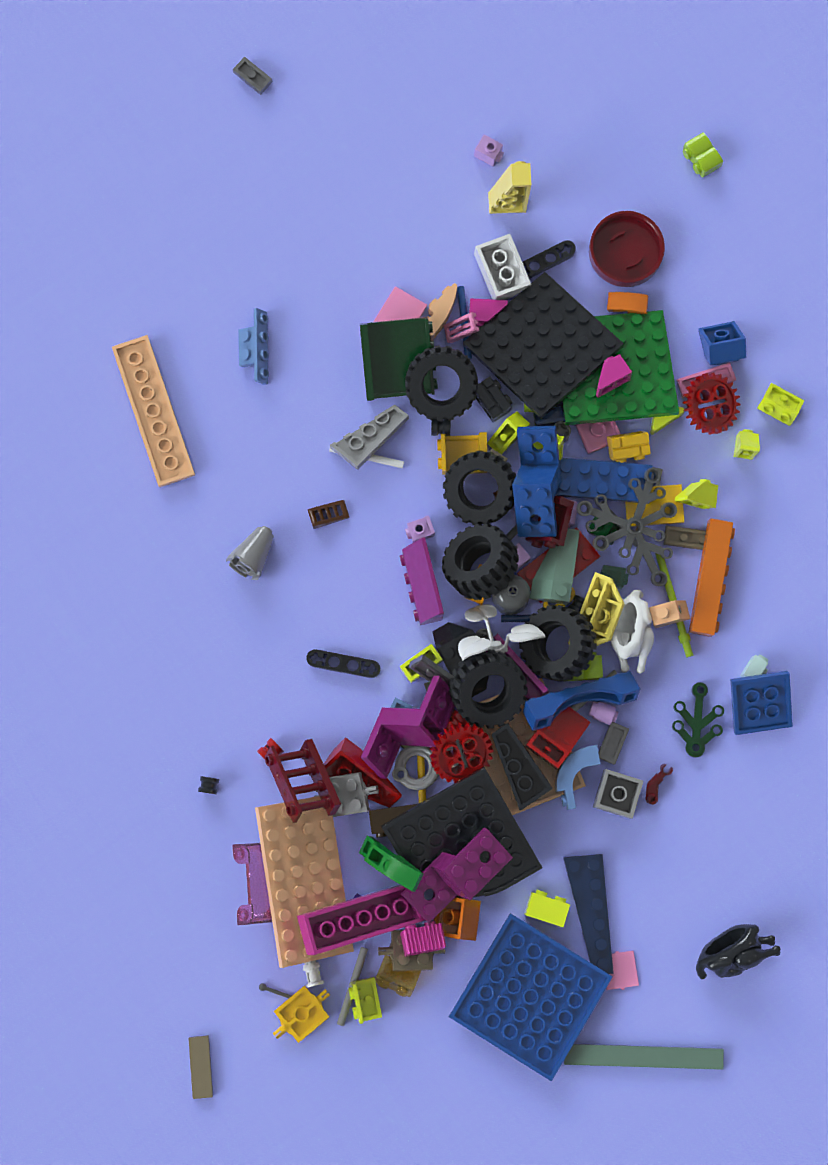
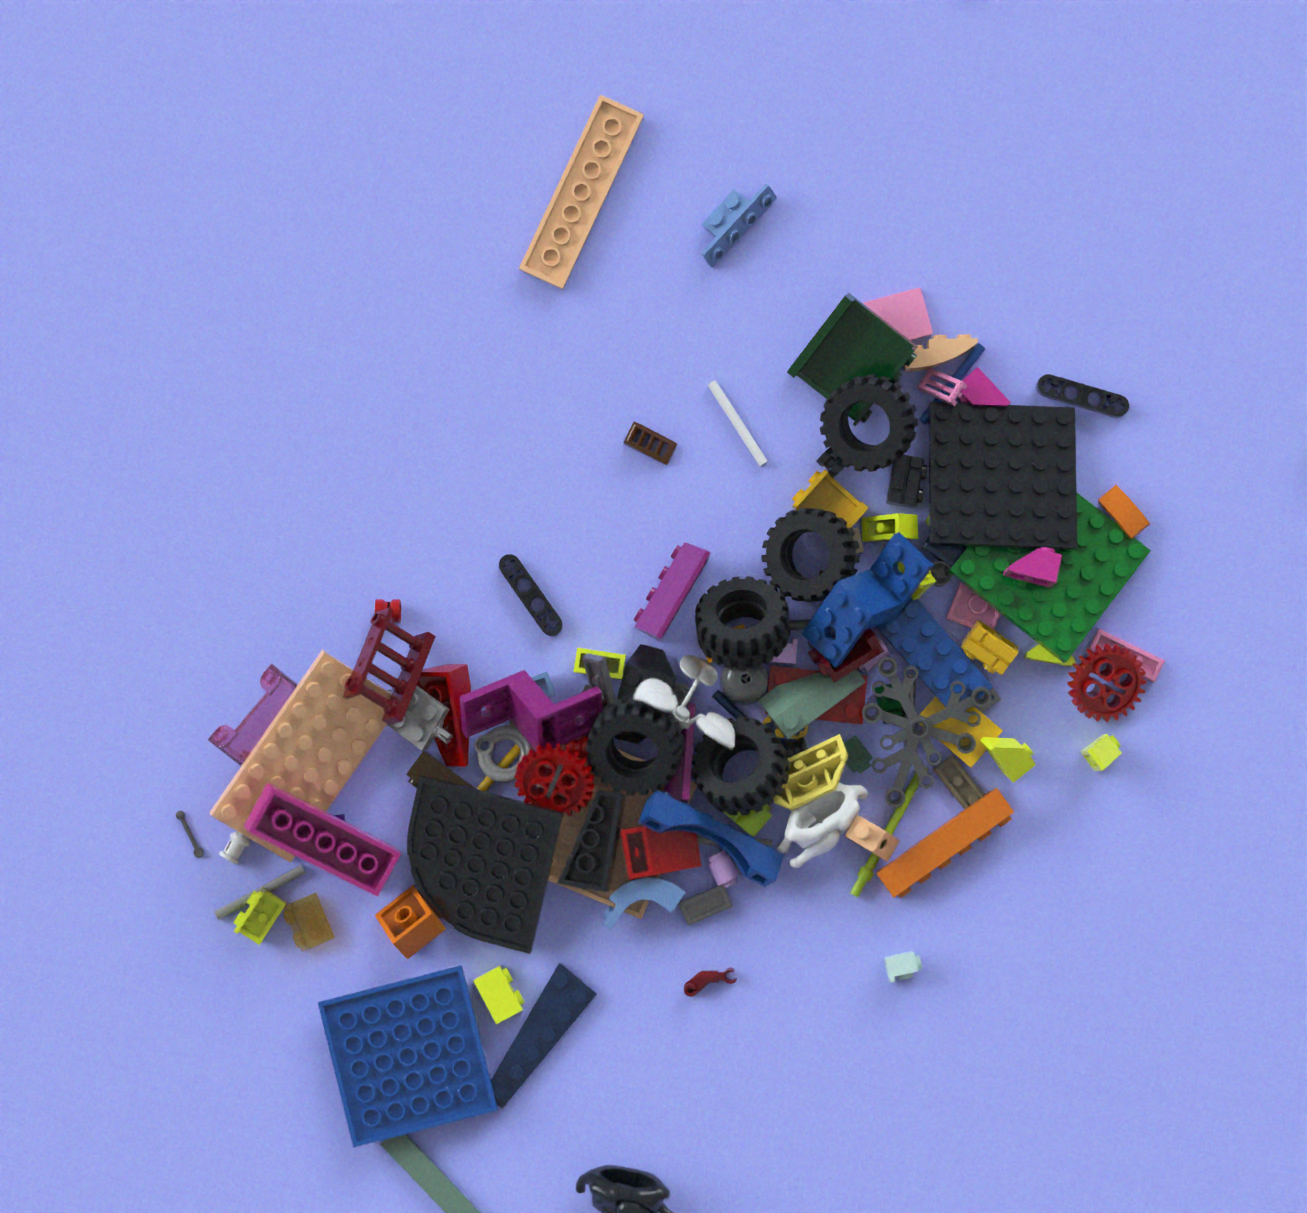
camera: 45 degrees right, 5 degrees up
(200, 1067) = (59, 832): dark tan tile -> none
(208, 785) = (303, 588): black wheel -> none
(252, 553) = (544, 413): light grey cone -> none
(301, 1014) = (191, 872): yellow plate -> none
(364, 442) = (754, 409): light grey wing -> none
(390, 864) = (394, 817): green slope -> none
(410, 963) = (342, 912): dark tan plate -> none
(422, 939) = (360, 911): dark pink brick -> none
(427, 531) = (724, 547): lavender brick -> none
(458, 875) = (443, 885): magenta bracket -> none
(489, 150) = (1136, 240): lavender brick -> none
(501, 267) = (1036, 366): white slope -> none
(511, 190) = (1115, 300): light yellow wedge -> none
(618, 794) = (662, 954): light grey brick -> none
(624, 971) = (514, 1115): bright pink piece -> none
(626, 248) = (1173, 459): dark red brick -> none
(697, 722) = (800, 962): dark green plant -> none
(722, 343) = (1175, 636): blue slope -> none
(761, 702) = (875, 1000): blue plate -> none
(780, 404) = (1173, 745): neon yellow bracket -> none

